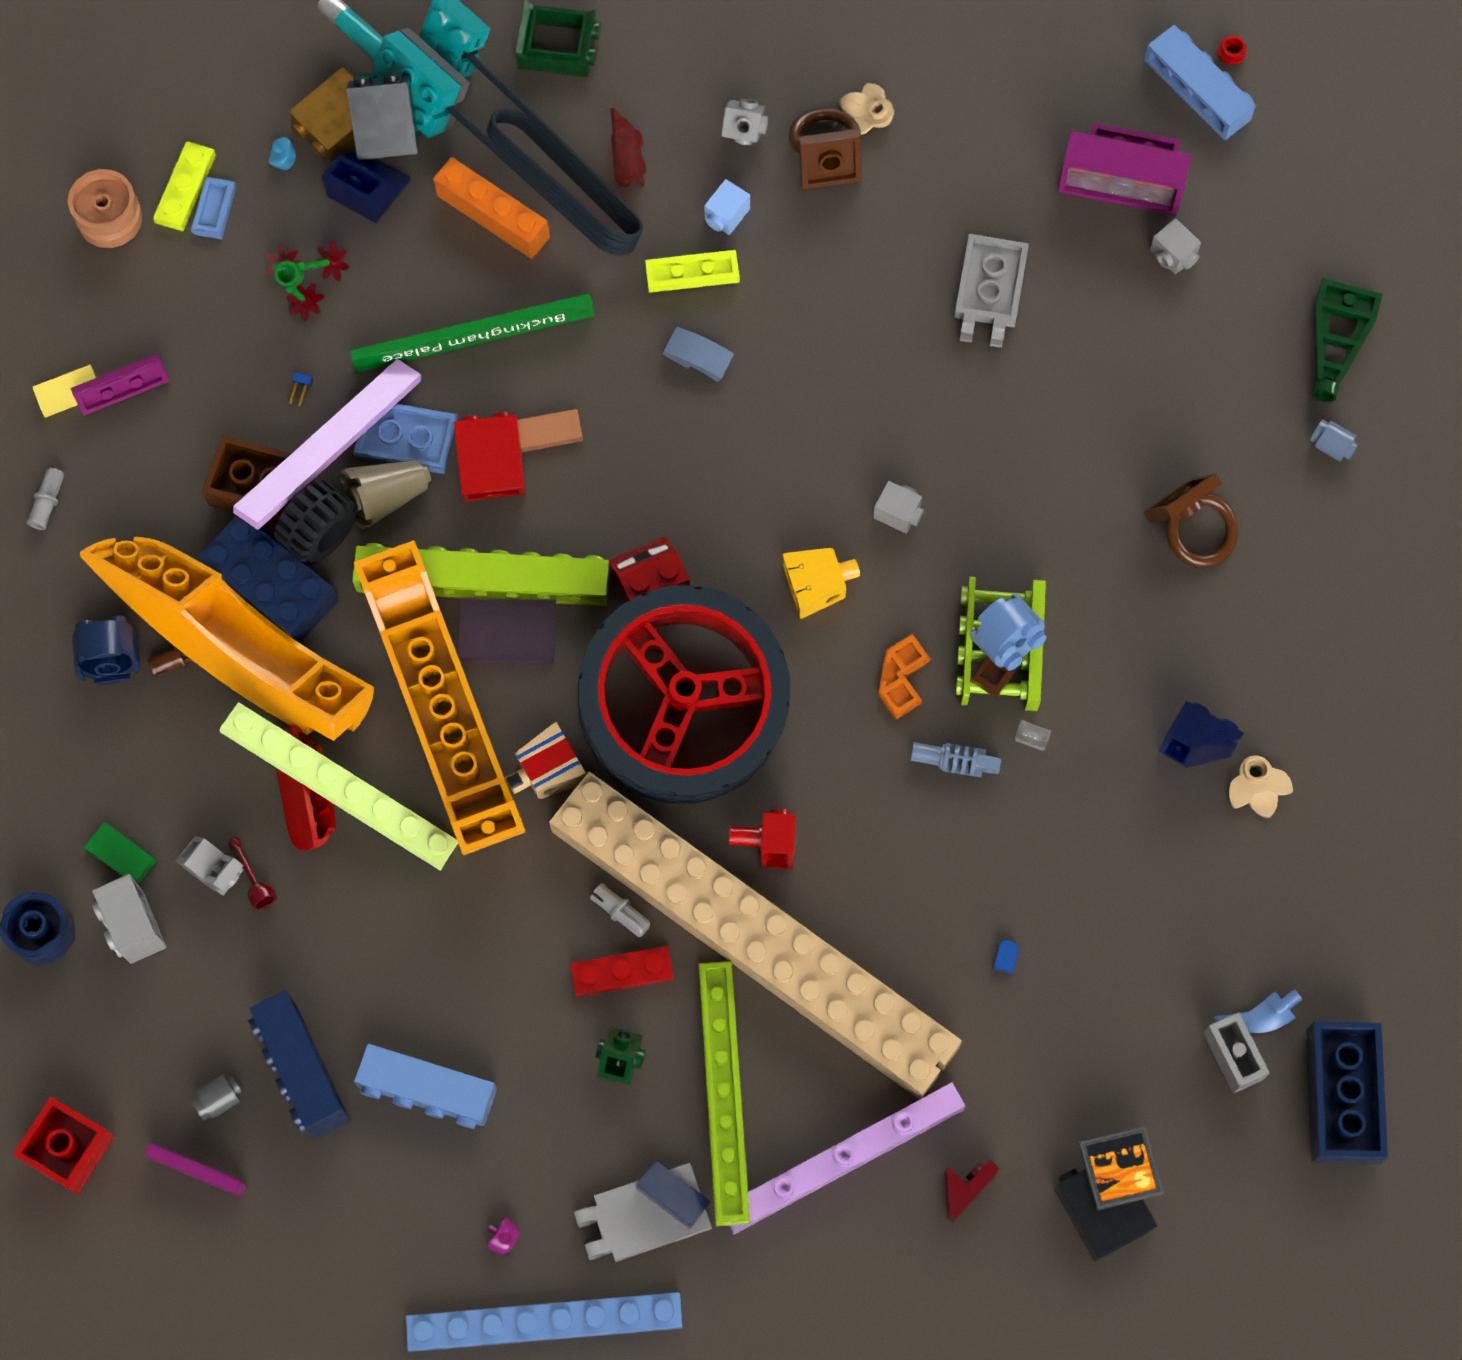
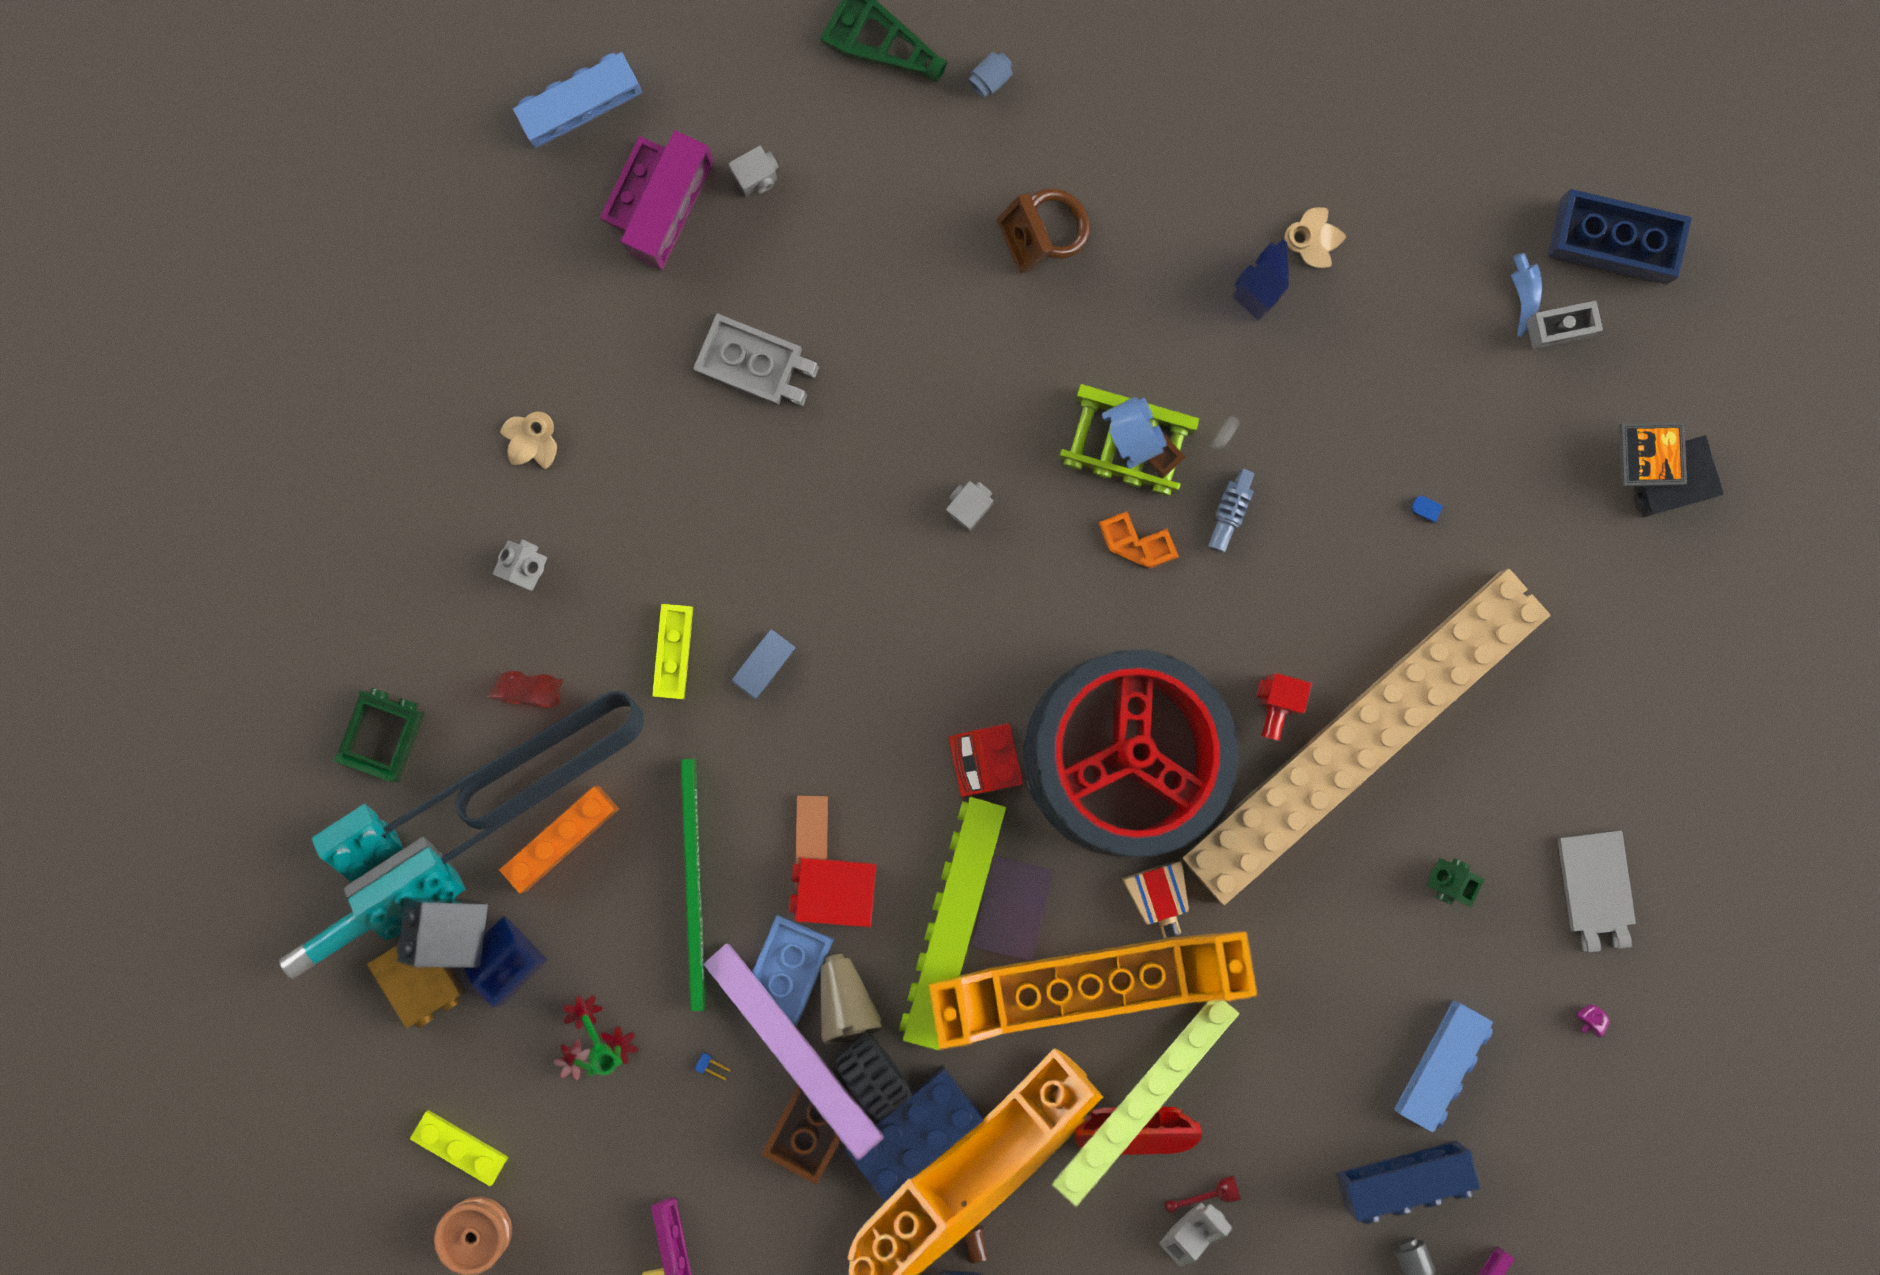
camera: 80 degrees left, 15 degrees up
(213, 207) = (490, 1122): medium blue tile -> none
(282, 154) = (446, 1041): dark azure piece -> none
(544, 1322) = (1674, 997): medium blue plate -> none
(620, 910) = (1313, 854): light grey axle -> none
(622, 971) = (1369, 864): red plate -> none
(672, 1194) = (1590, 860): dark blue slope -> none
(724, 1094) = (1506, 794): lime tile -> none
(727, 207) = (612, 603): light blue brick -> none
(817, 578) = (1026, 599): yellow torso -> none
(830, 156) = (583, 487): reddish brown tile -> none
(852, 1153) = (1584, 701): lavender piece -> none
(960, 1194) = (1639, 598): dark red slope -> none
(1232, 43) = (547, 50): red plate -> none

